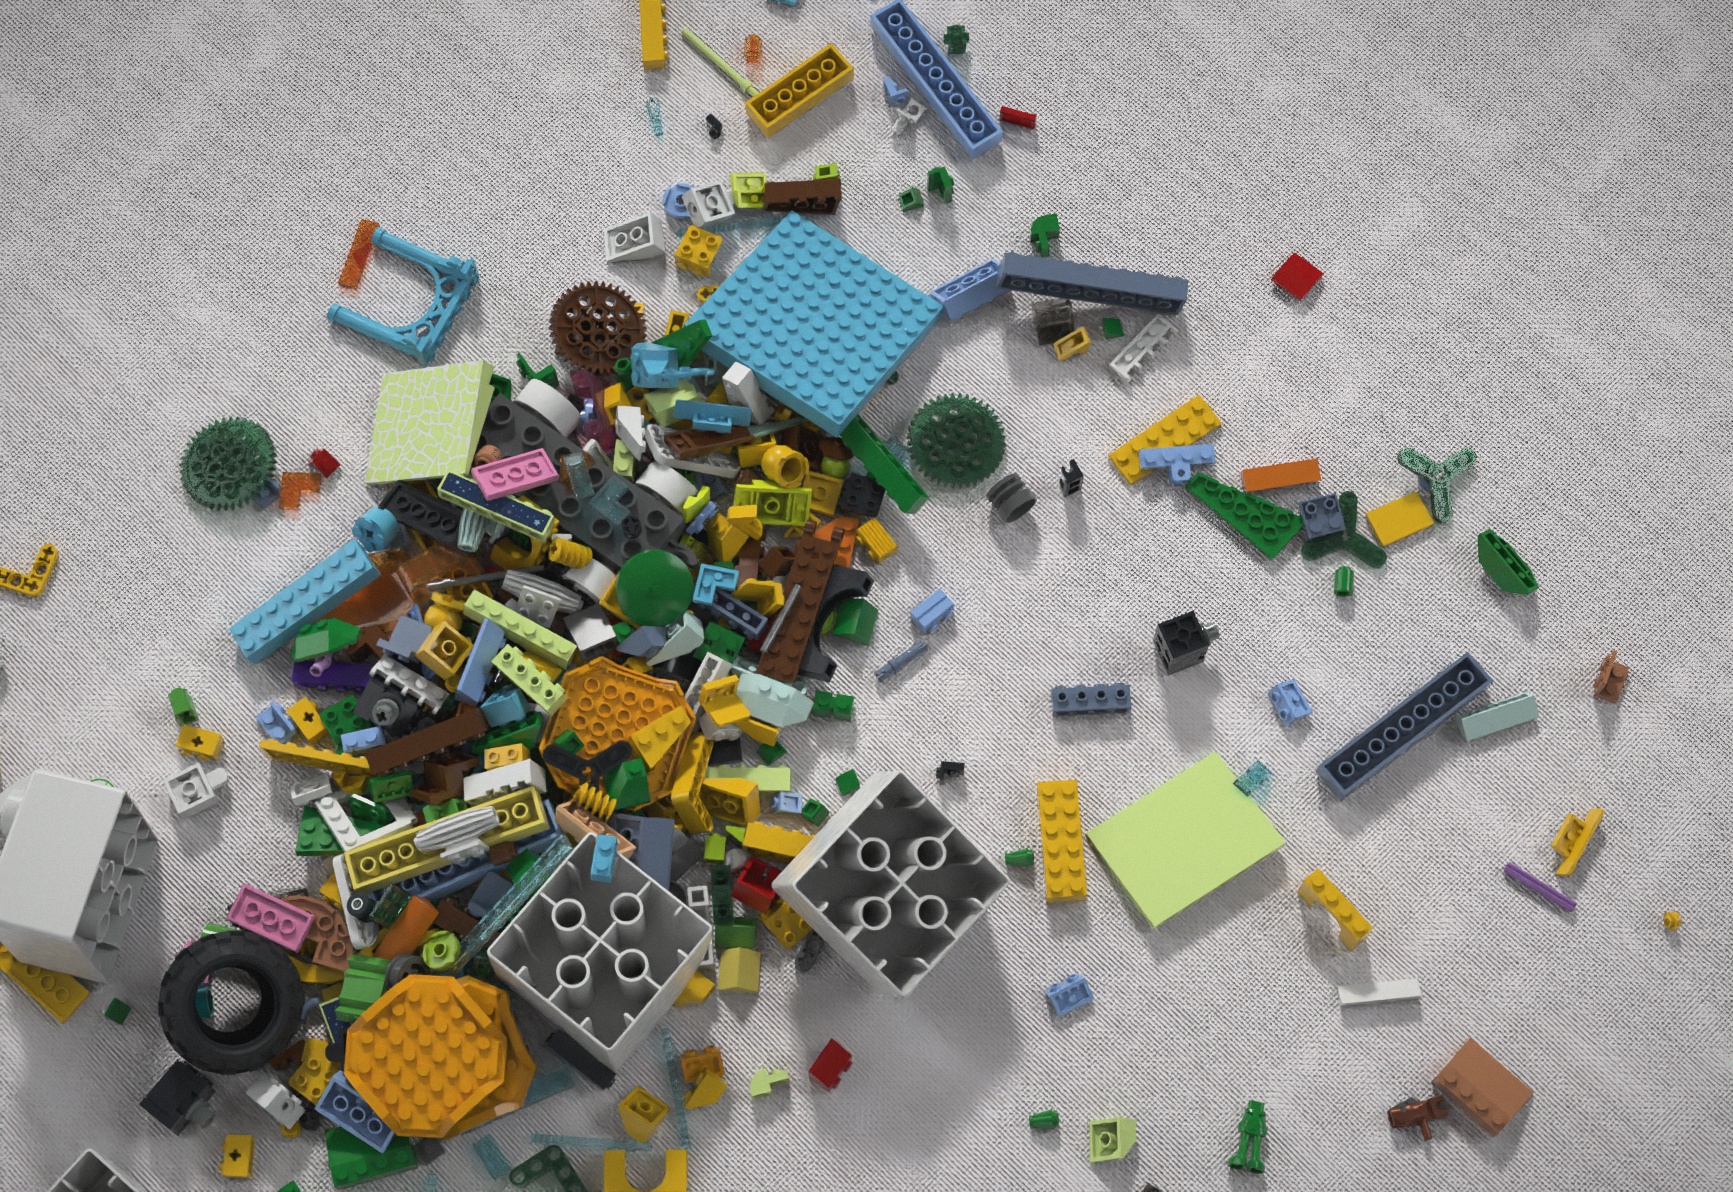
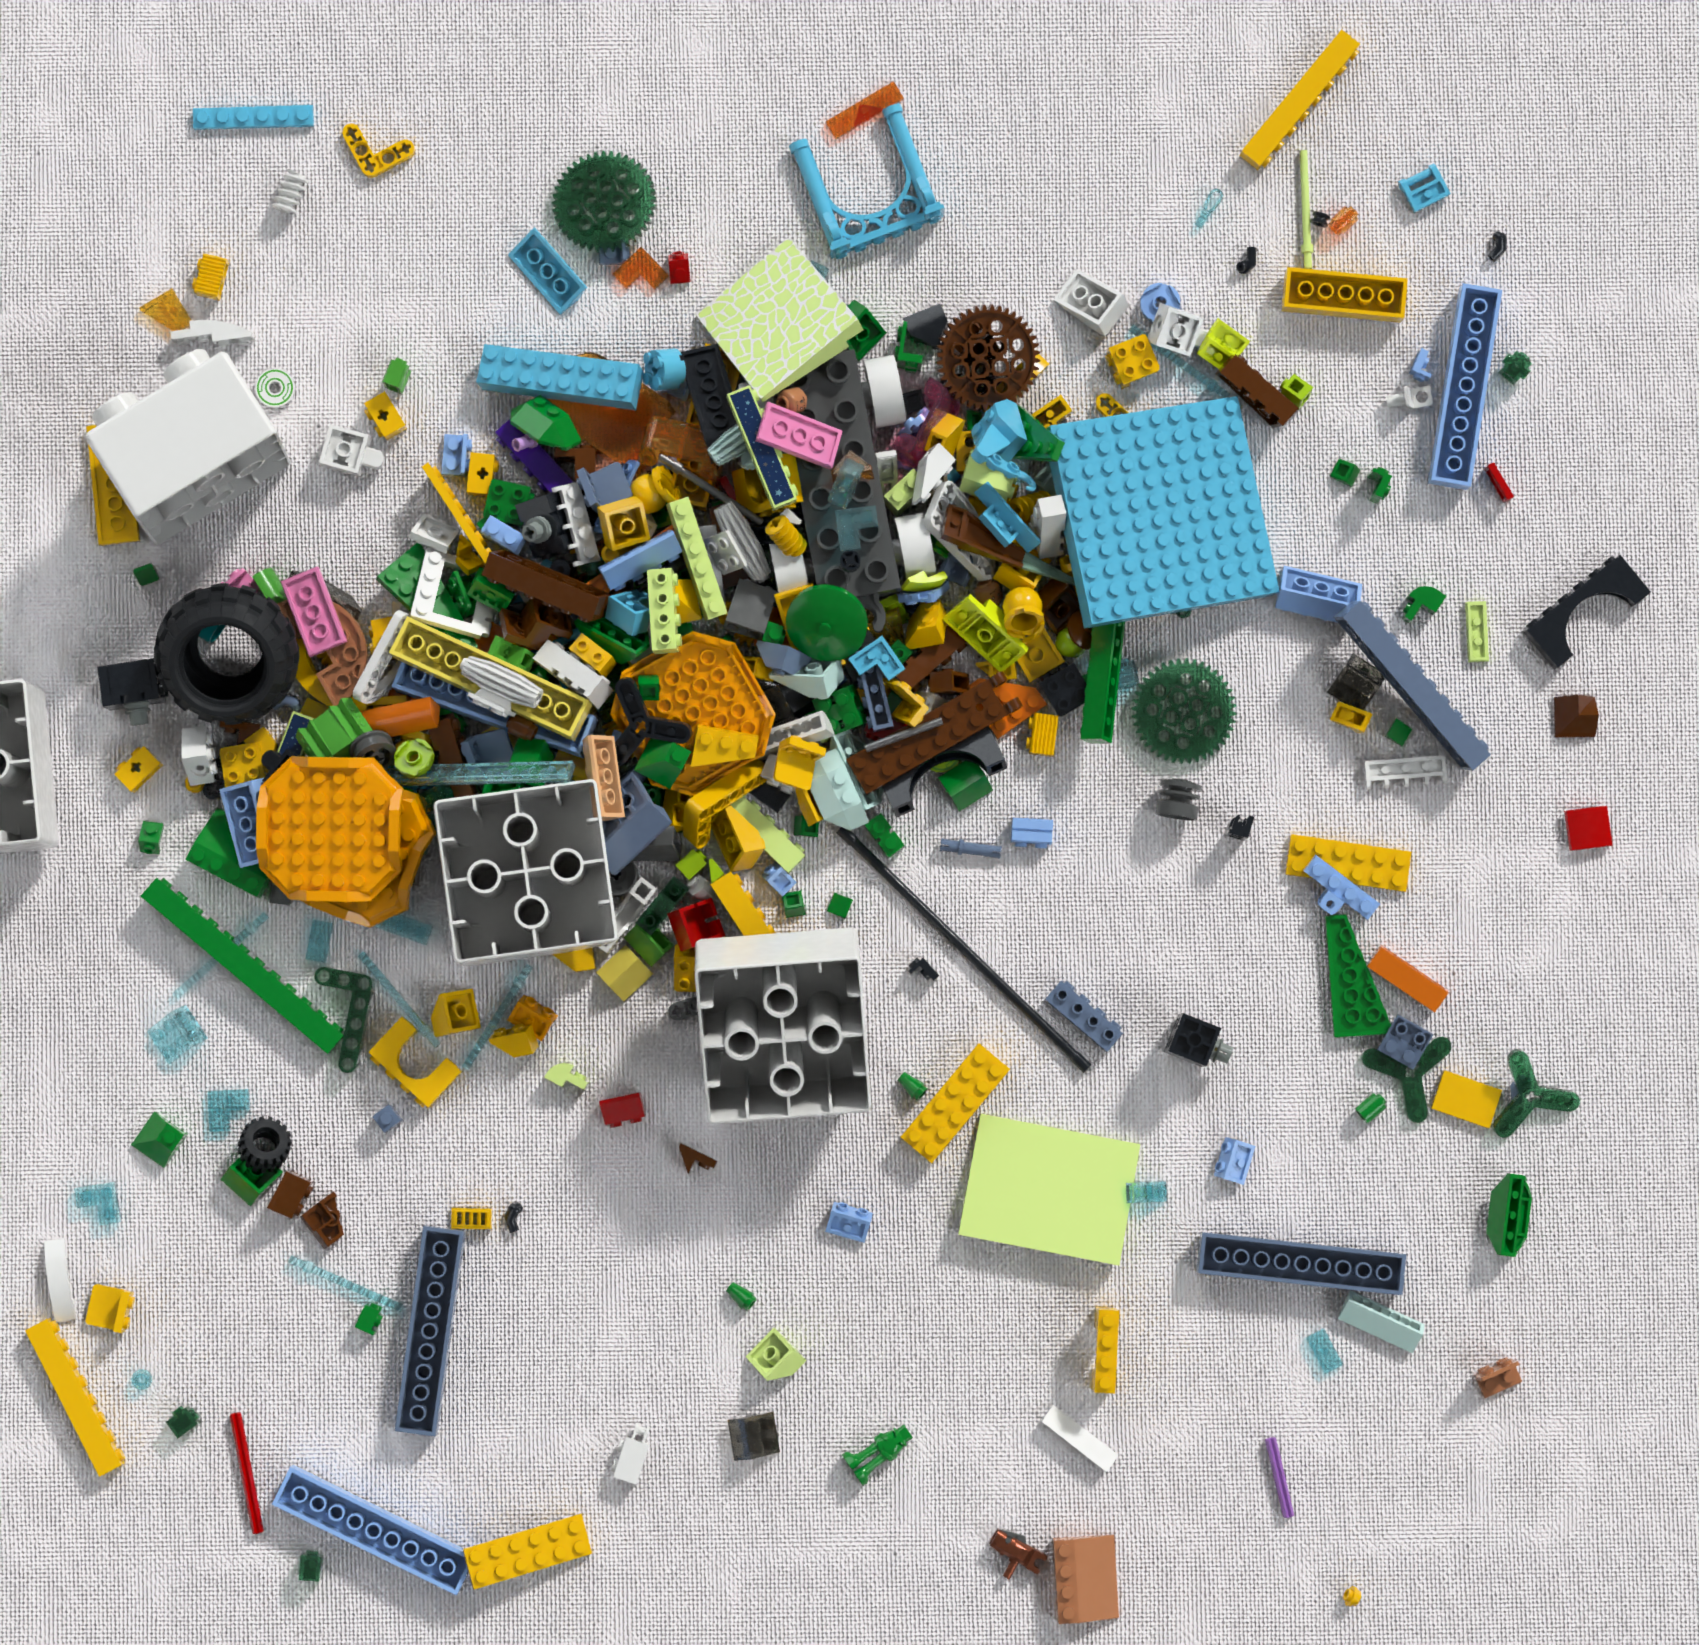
camera: 40 degrees right, 15 degrees up
(230, 544) = (547, 271): none -> medium azure slope
(383, 911) = (392, 686): clear green plate -> none
(537, 349) = (927, 326): none -> black slope
(579, 1059) = (441, 927): black slope -> none
(594, 801) = (625, 753): yellow piece -> none
(604, 858) = (583, 812): medium azure brick -> none
(624, 370) = (976, 412): green cone -> none
(736, 60) = (1320, 219): none -> black bush
(745, 519) = (952, 628): yellow slope -> none
(812, 730) = (1075, 1056): none -> black piece
(911, 1053) = (690, 1155): none -> reddish brown slope
(1098, 221) = (1477, 631): none -> yellowish green tile
(1146, 178) = (1550, 631): none -> black arch
(1216, 216) = (1575, 716): none -> reddish brown slope
(1480, 772) = (1324, 1350): none -> clear light blue plate
(1573, 839) = (1341, 1468): yellow bracket -> none

